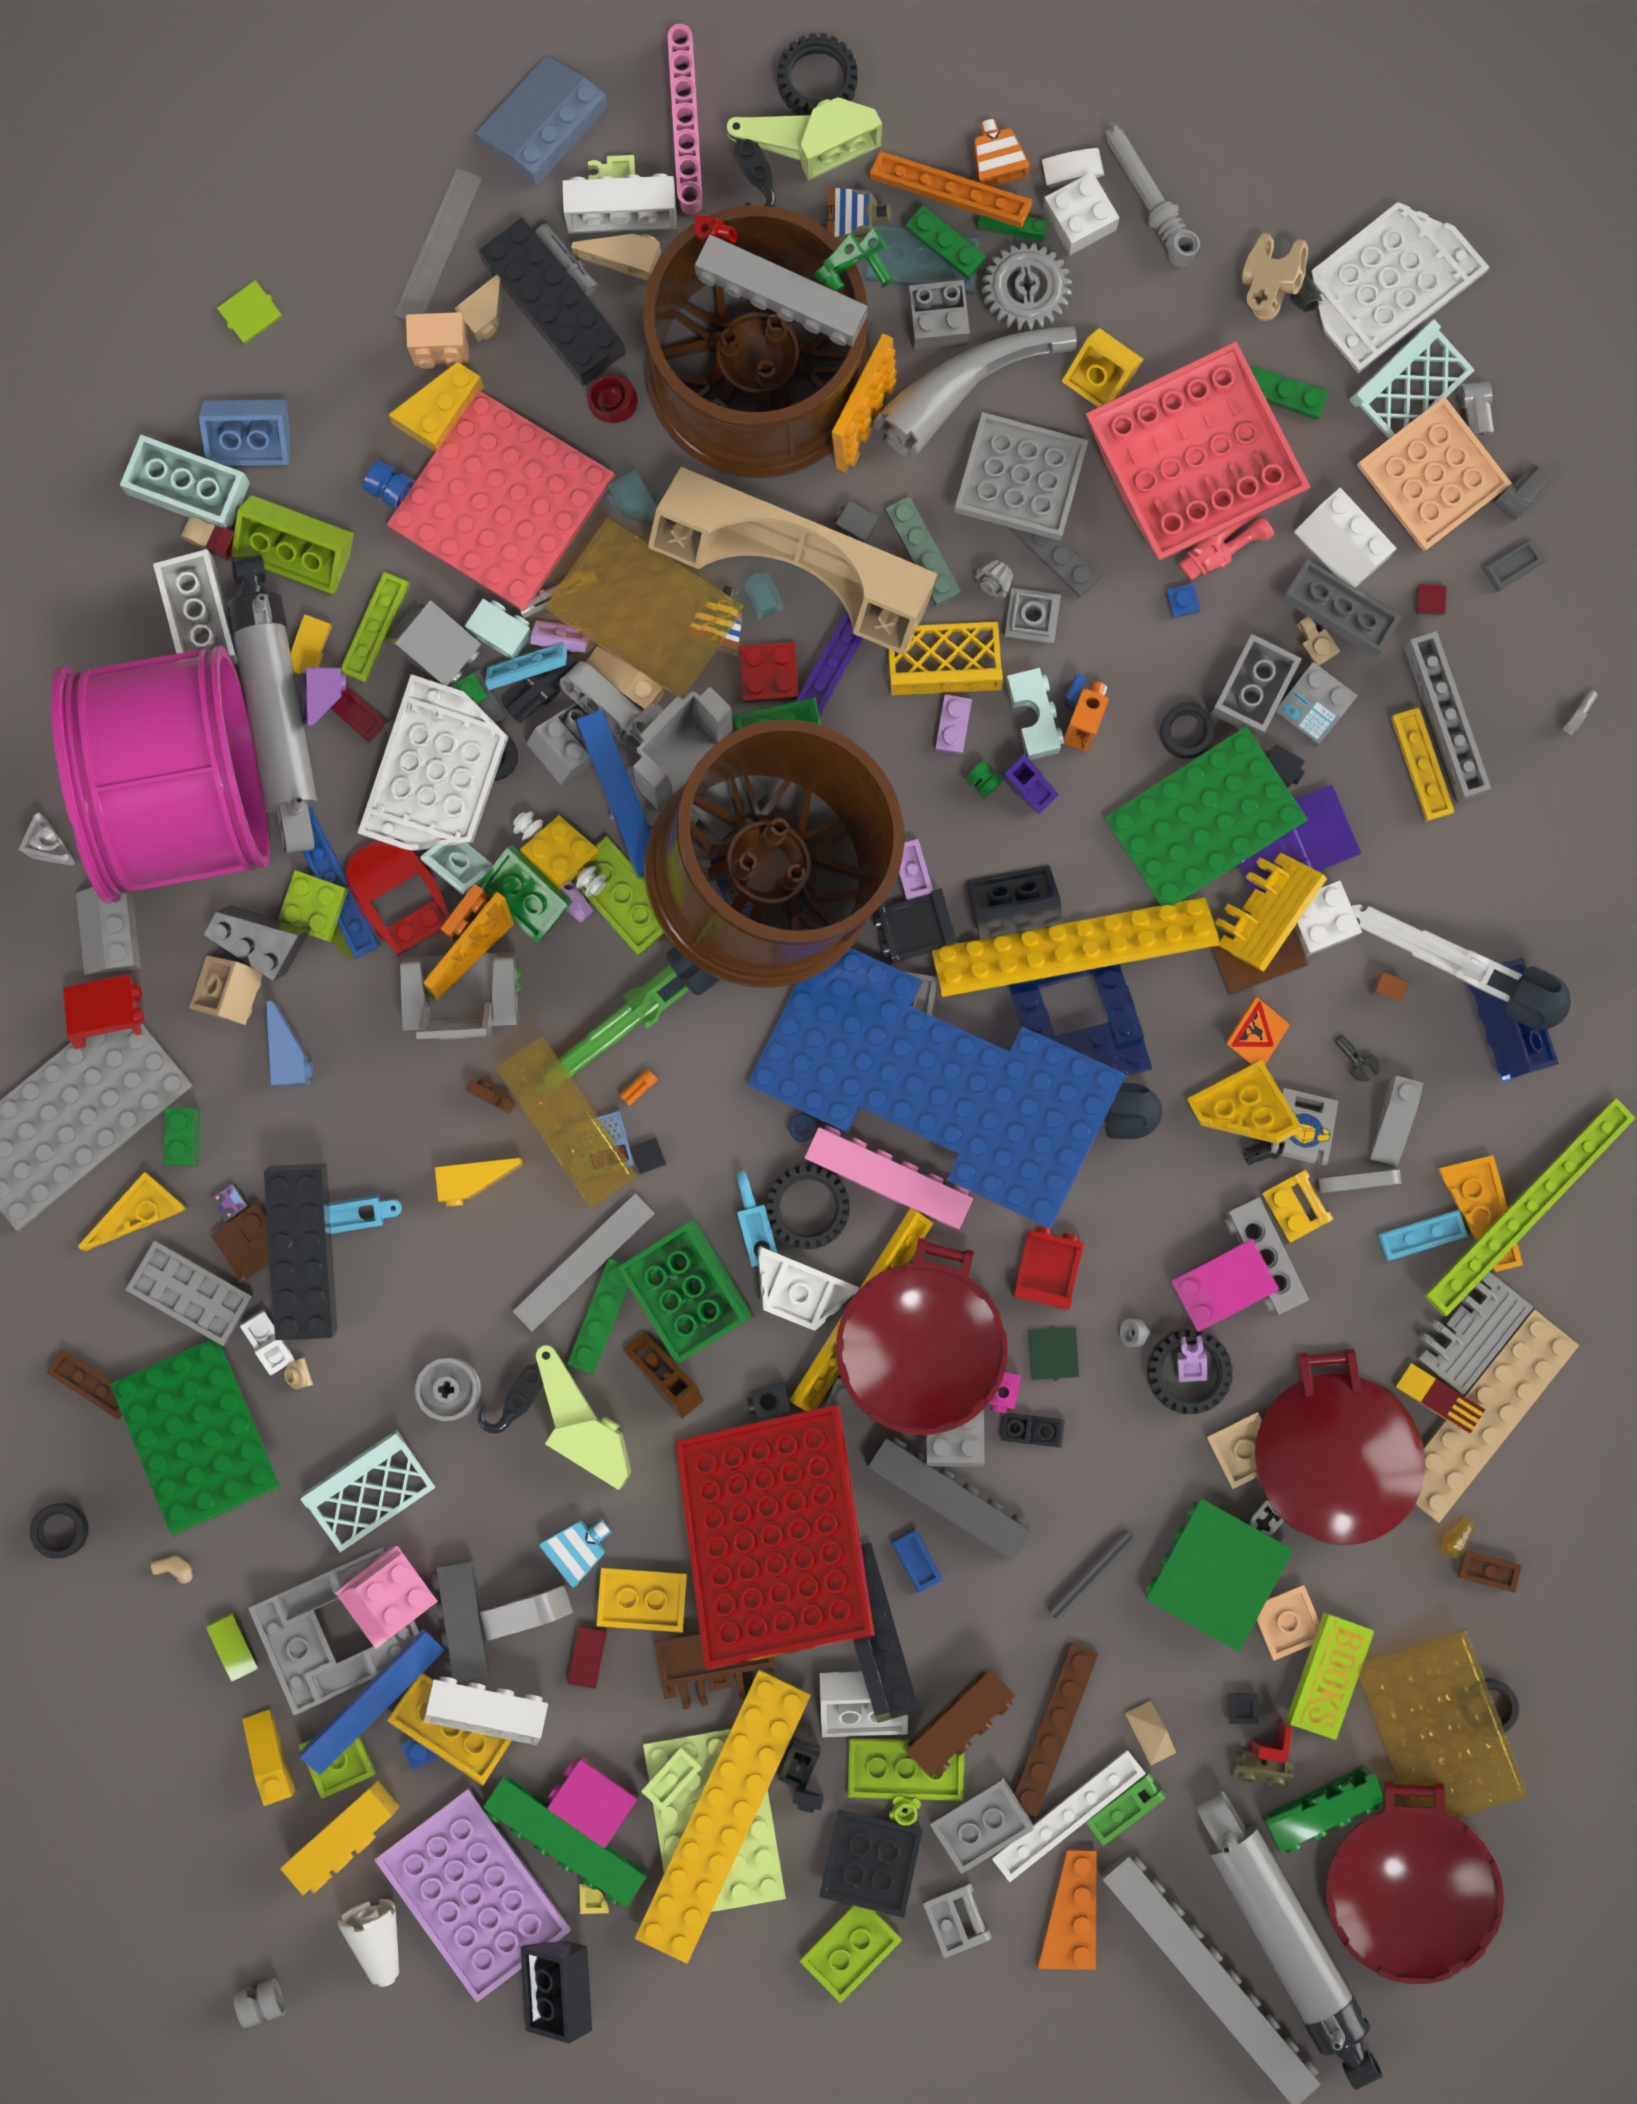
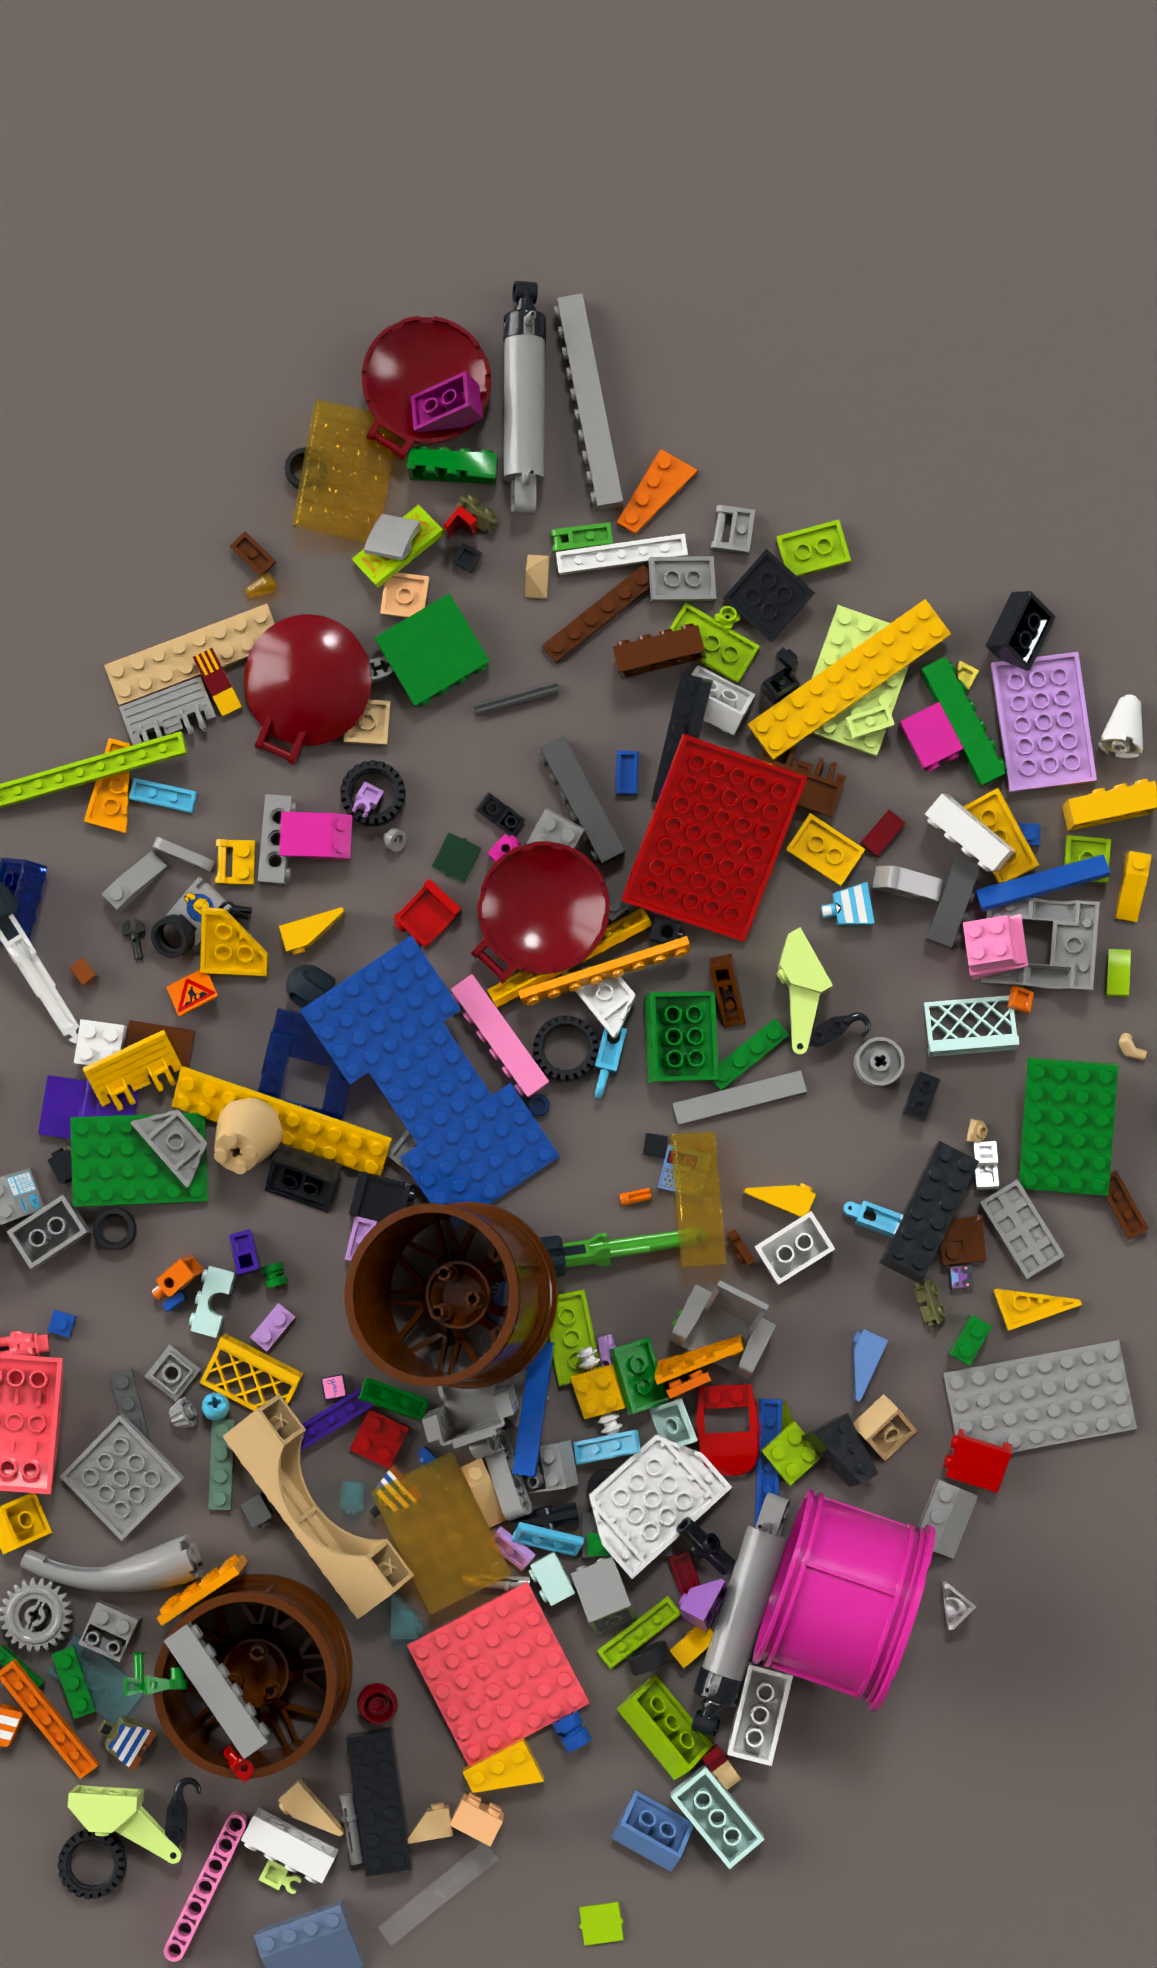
camera: 145 degrees left, 0 degrees up
(239, 1147) = (933, 1309): none -> olive hinge
(327, 1552) = (1020, 999): none -> orange tile
(346, 603) = (649, 1658): none -> black tyre
(351, 753) = (705, 1545): none -> black piece
(380, 1377) = (921, 1096): none -> black brick
(428, 1127) = (794, 1248): none -> white slope
(516, 798) = (607, 1447): none -> medium azure tile
(706, 680) = (426, 1455): none -> blue plate
(804, 1324) = (596, 974): none -> light orange plate
(850, 698) = (334, 1387): none -> bright pink tile
(956, 608) = (218, 1413): none -> medium azure piece
(1103, 907) = (246, 1134): none -> tan cone
(1171, 1172) = (305, 932): none -> yellow slope
(1178, 857) = (174, 1142): none -> light grey wing
(1311, 1098) = (160, 943): none -> black tyre
(1342, 1681) = (392, 537): none -> light grey slope
(1372, 1877) = (447, 404): none -> magenta slope

